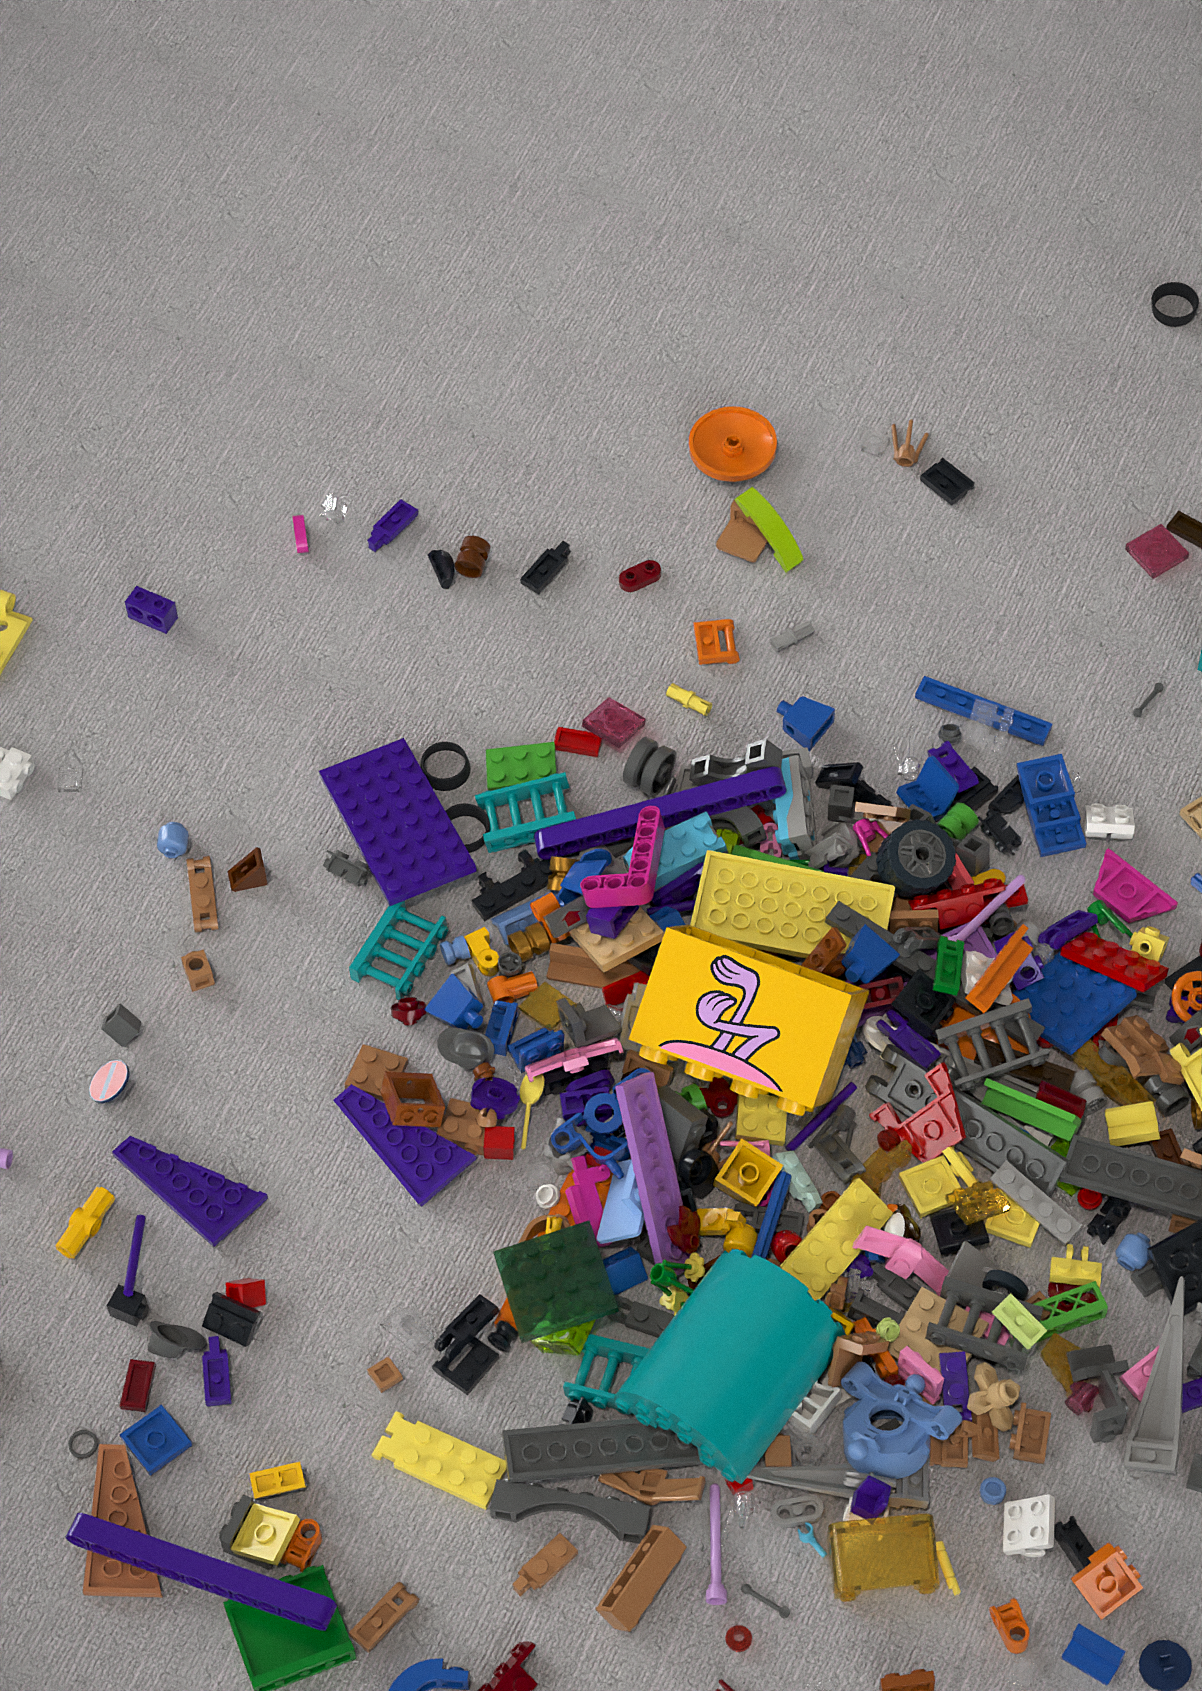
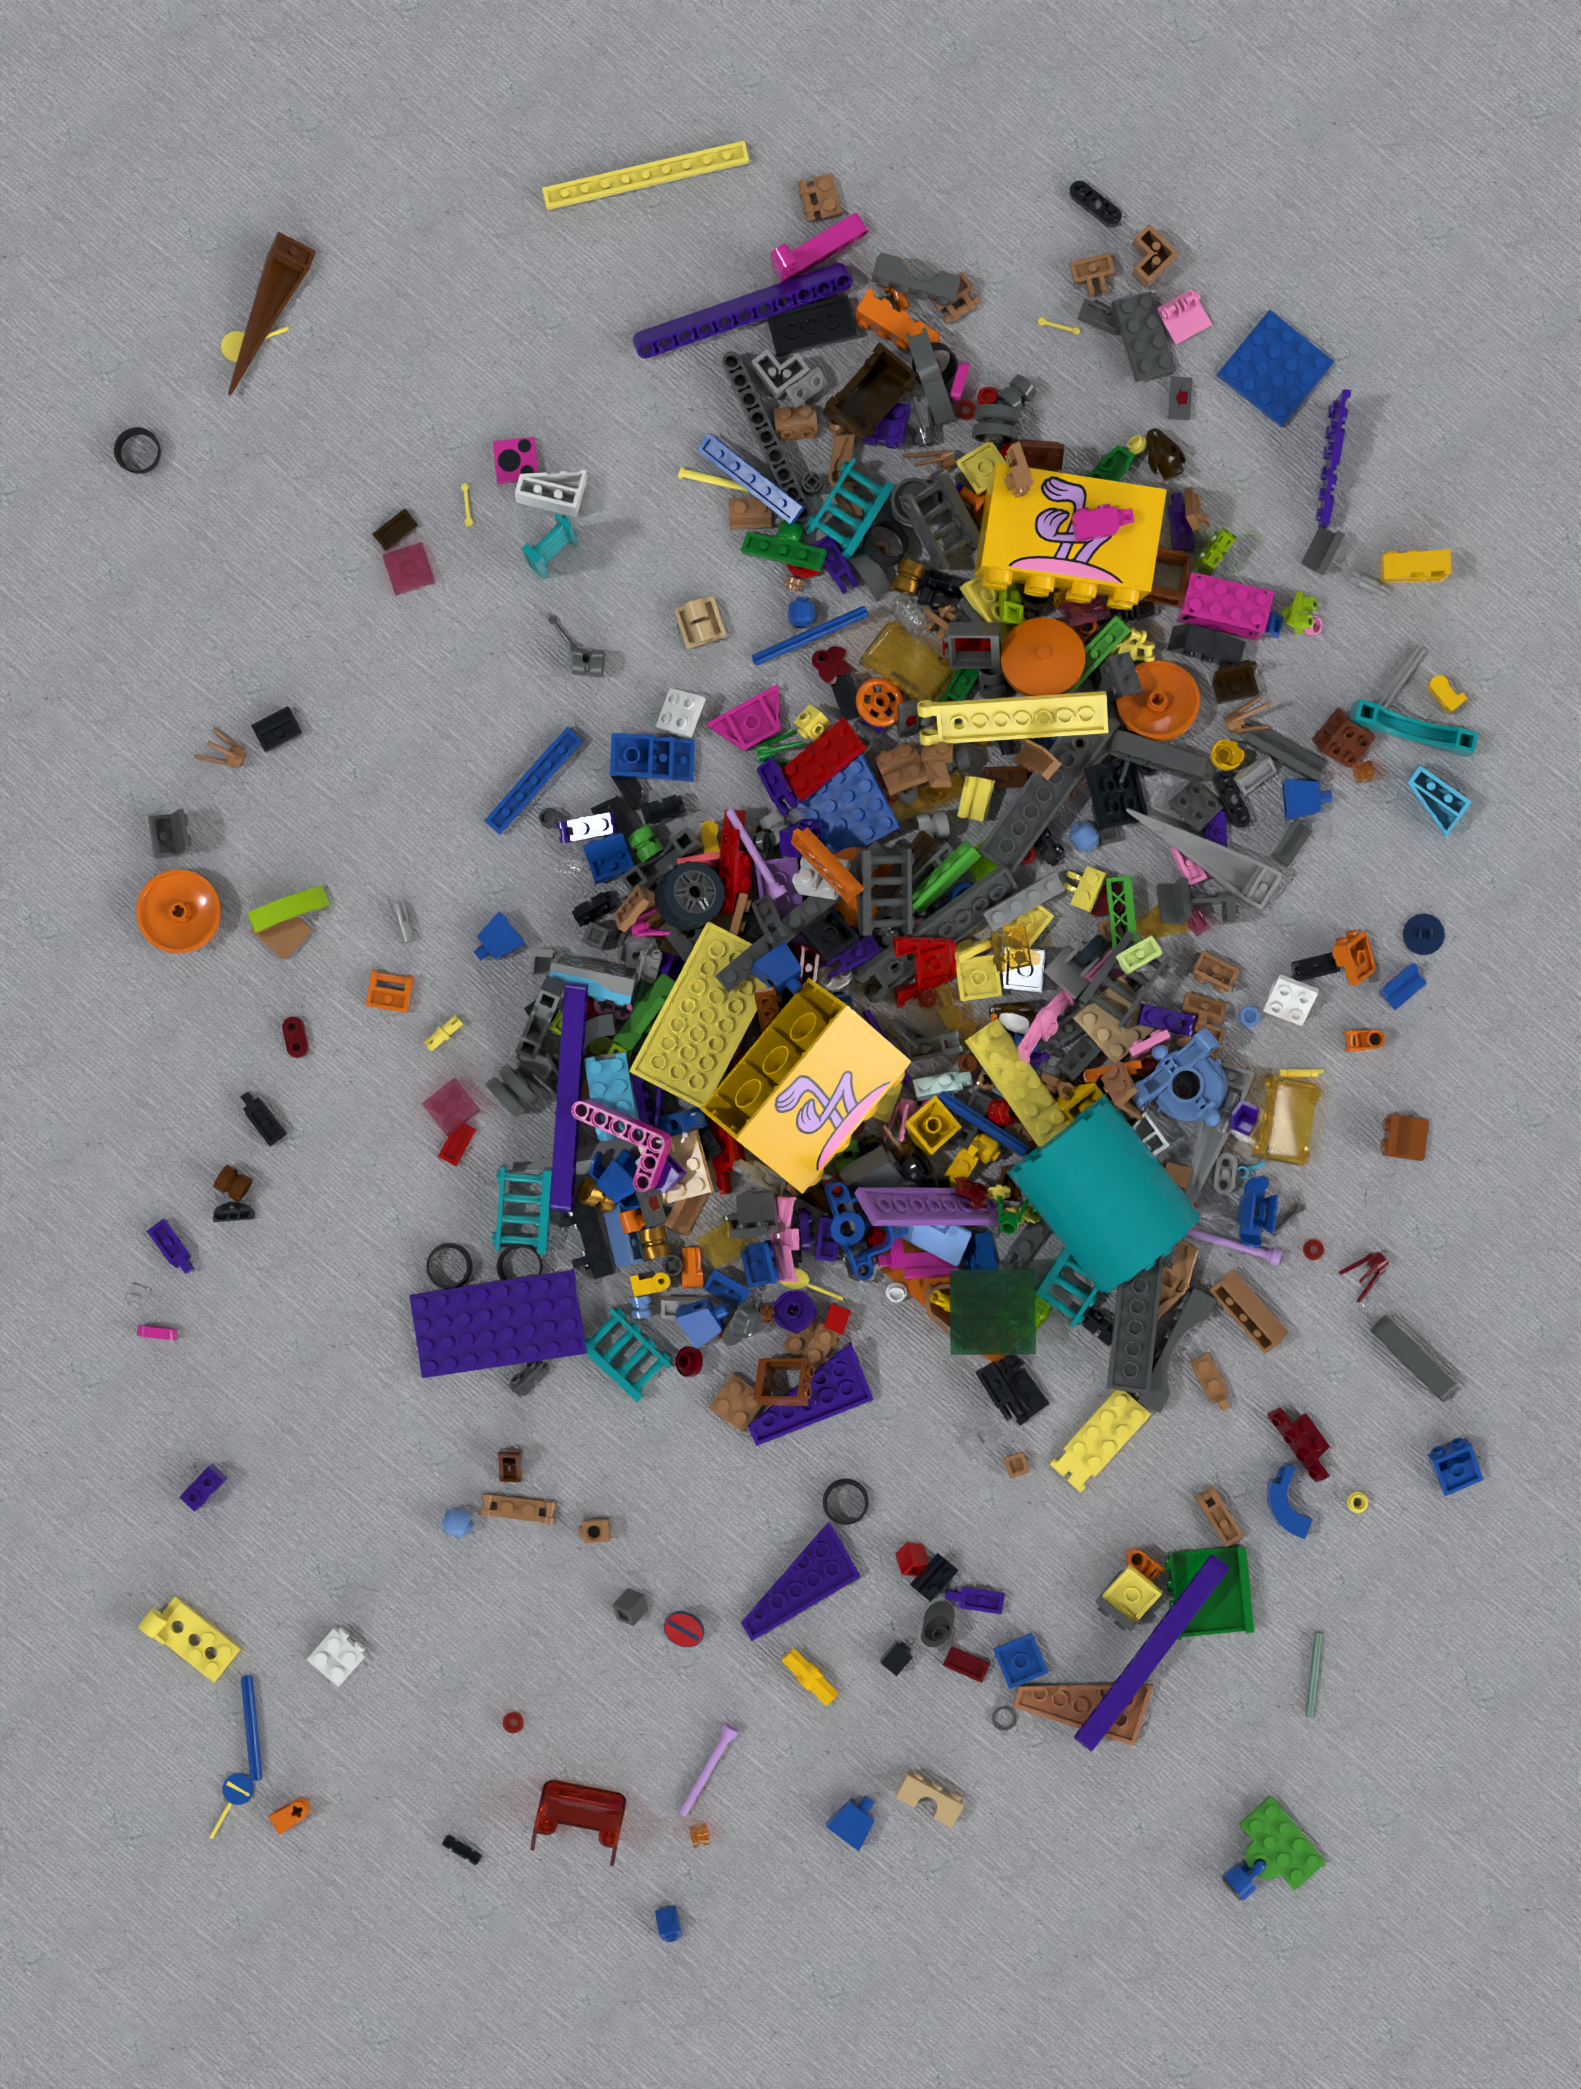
camera: 75 degrees left, 30 degrees up
(134, 1255) = (855, 1643): dark purple bar -> none
(277, 1480) = (1085, 1572): yellow hinge -> none
(297, 1229) = (840, 1482): none -> black tyre
(487, 1119) = (822, 1324): medium nougat hinge -> none
(519, 764) = (470, 1200): bright green plate -> none
(783, 1554) = (1254, 1196): none -> blue piece
(805, 417) = (169, 834): none -> dark grey bracket
(839, 774) = (566, 928): black tile -> none
(888, 1329) = (1104, 1057): yellowish green plate -> none
(948, 965) = (805, 904): green plate -> none
(981, 724) = (550, 788): clear plate -> none
(994, 1397) = (1181, 989): tan plant -> none
(1061, 1099) = (945, 851): dark red tile -> none
(1127, 724) = (595, 659): none -> dark grey wheel

